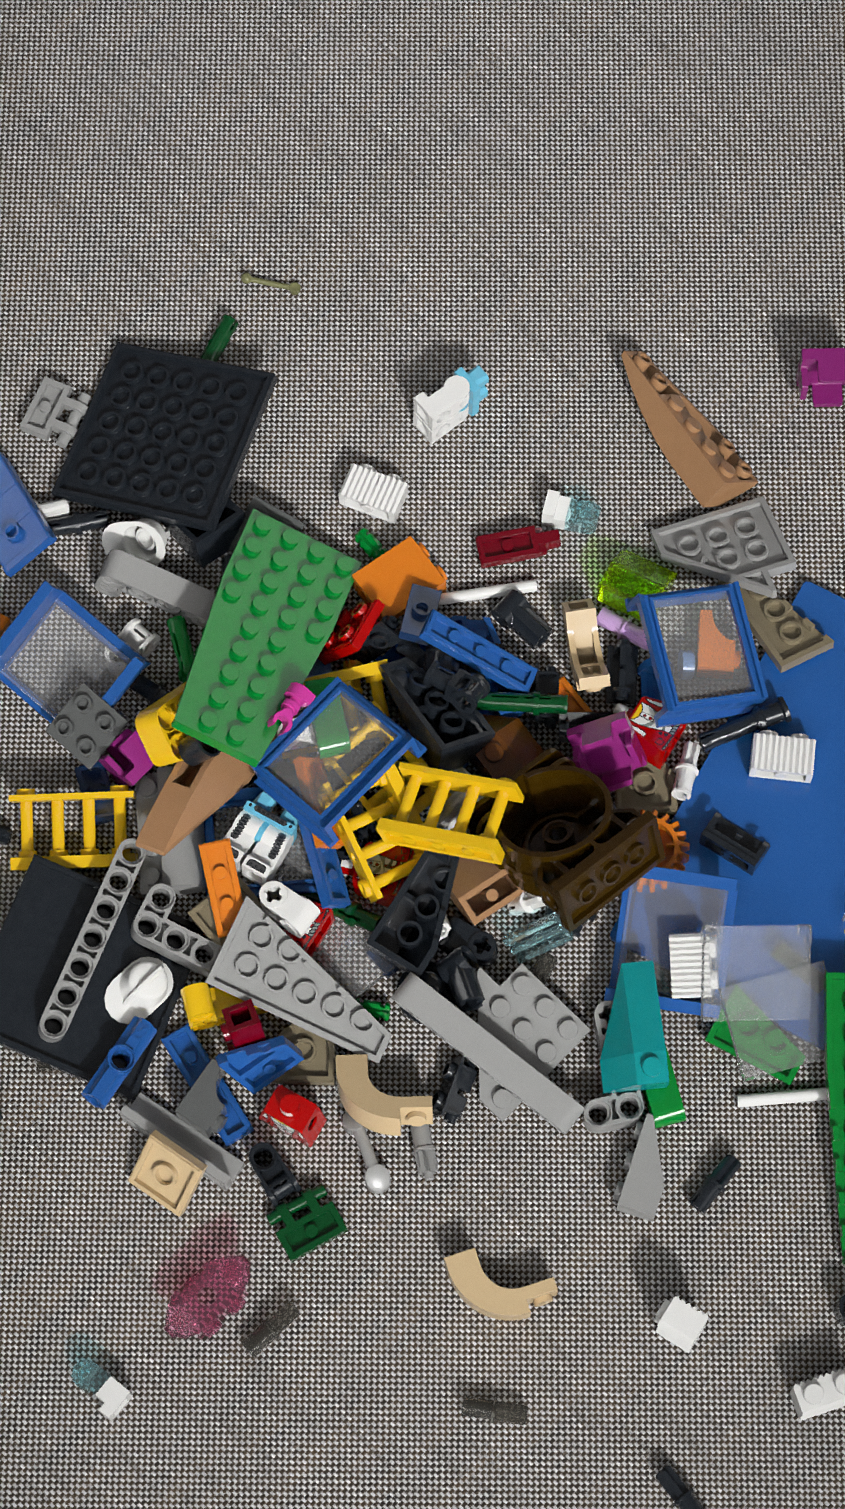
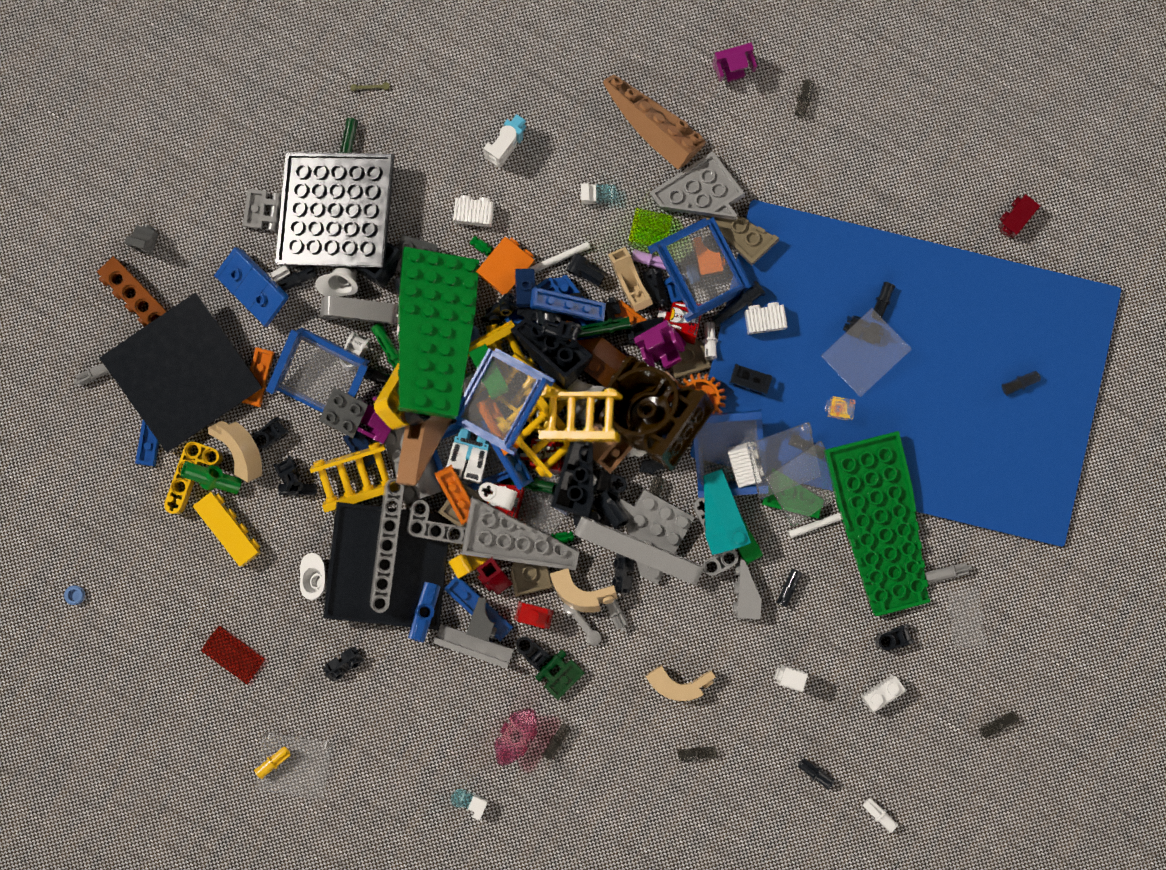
camera: 15 degrees left, 15 degrees up
(138, 989) = (422, 563): white piece -> none
(167, 1173) = (471, 669): tan plate -> none
(261, 1062) = (507, 591): blue wing -> none
(296, 698) = (467, 368): dark pink piece -> none
(351, 631) = (487, 308): red tile -> none
(515, 545) = (569, 223): dark red hinge -> none
(541, 941) = (652, 469): clear light blue tile -> none

